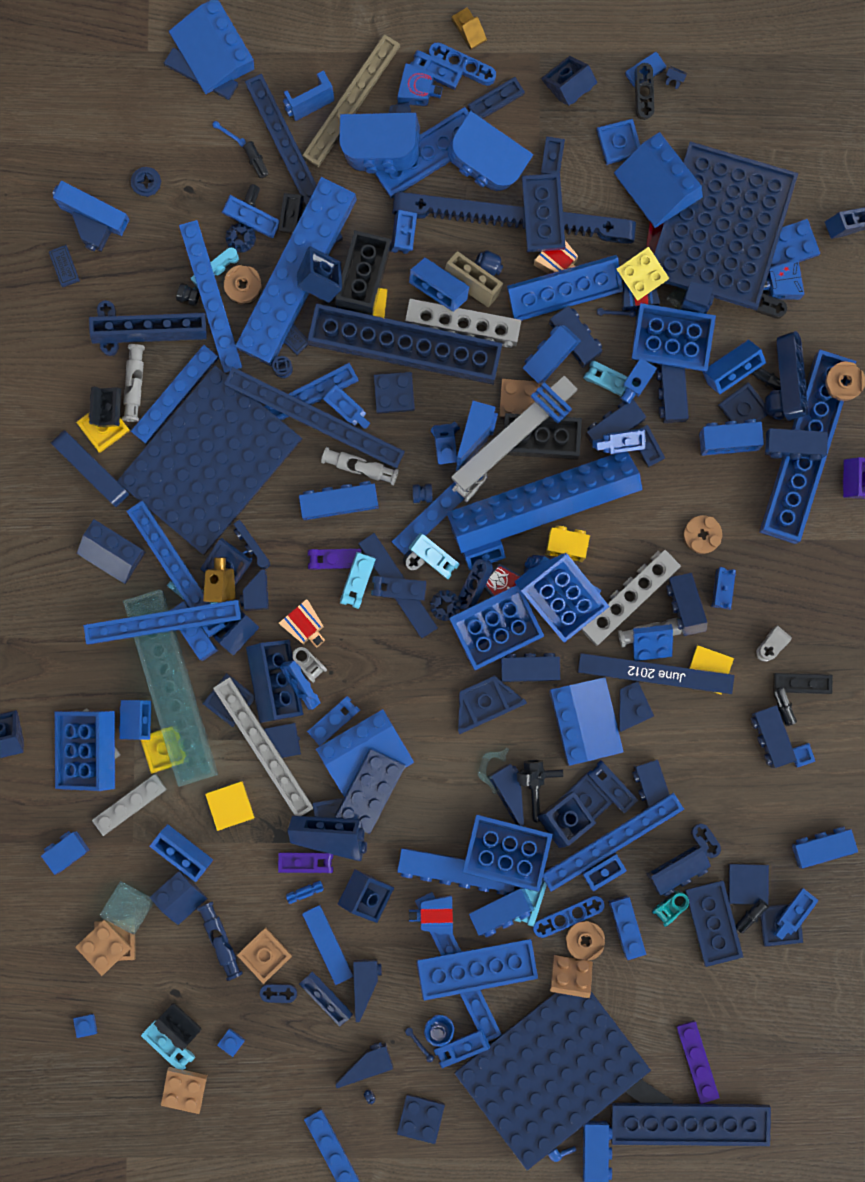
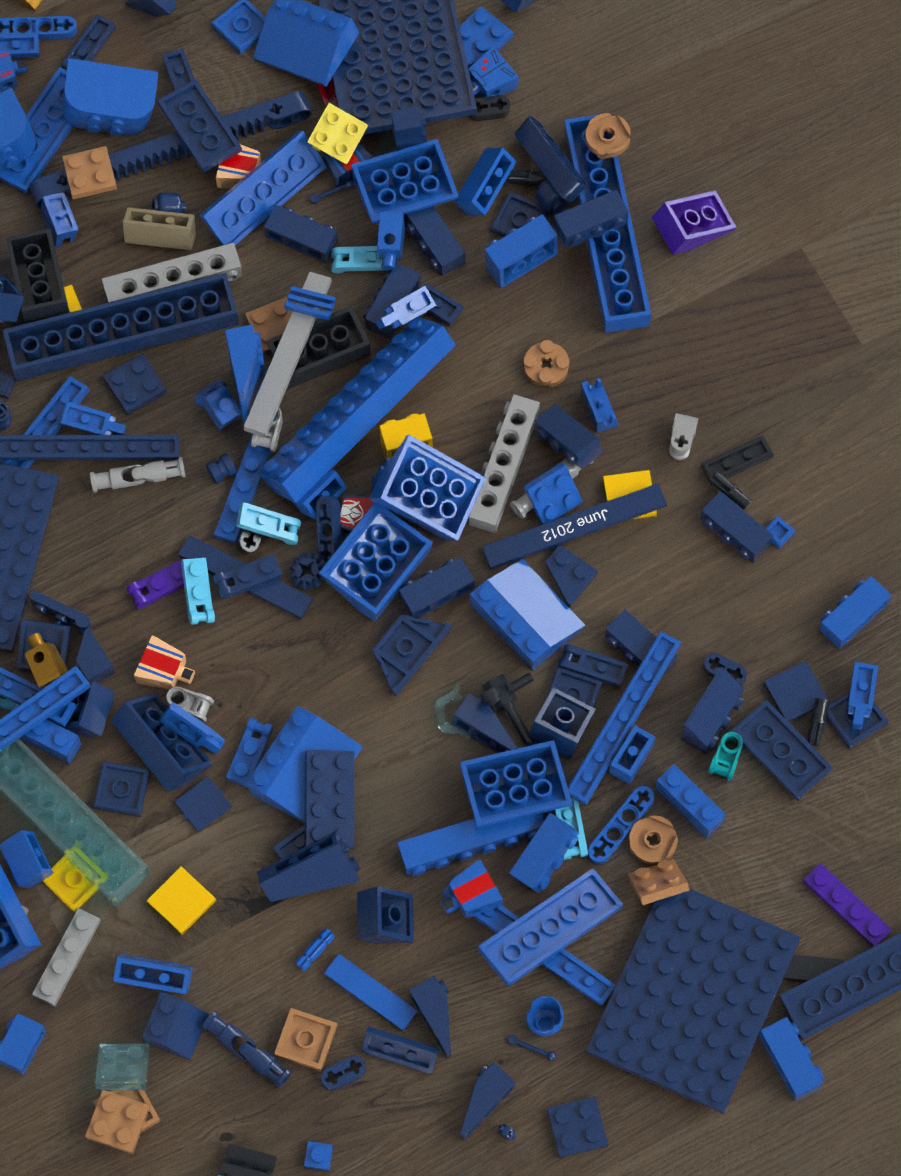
camera: 25 degrees left, 15 degrees down
(263, 747) = (186, 816): light grey plate -> none
(304, 863) = (298, 916): dark purple plate -> none
(338, 501) = (133, 521): blue brick -> none
(439, 284) = (126, 249): blue brick -> none
(442, 208) = (89, 172): none -> medium nougat plate
(462, 1048) = (580, 1022): blue plate -> none
(551, 353) = (283, 259): blue brick -> none
(555, 1155) = (747, 1087): blue hand -> none

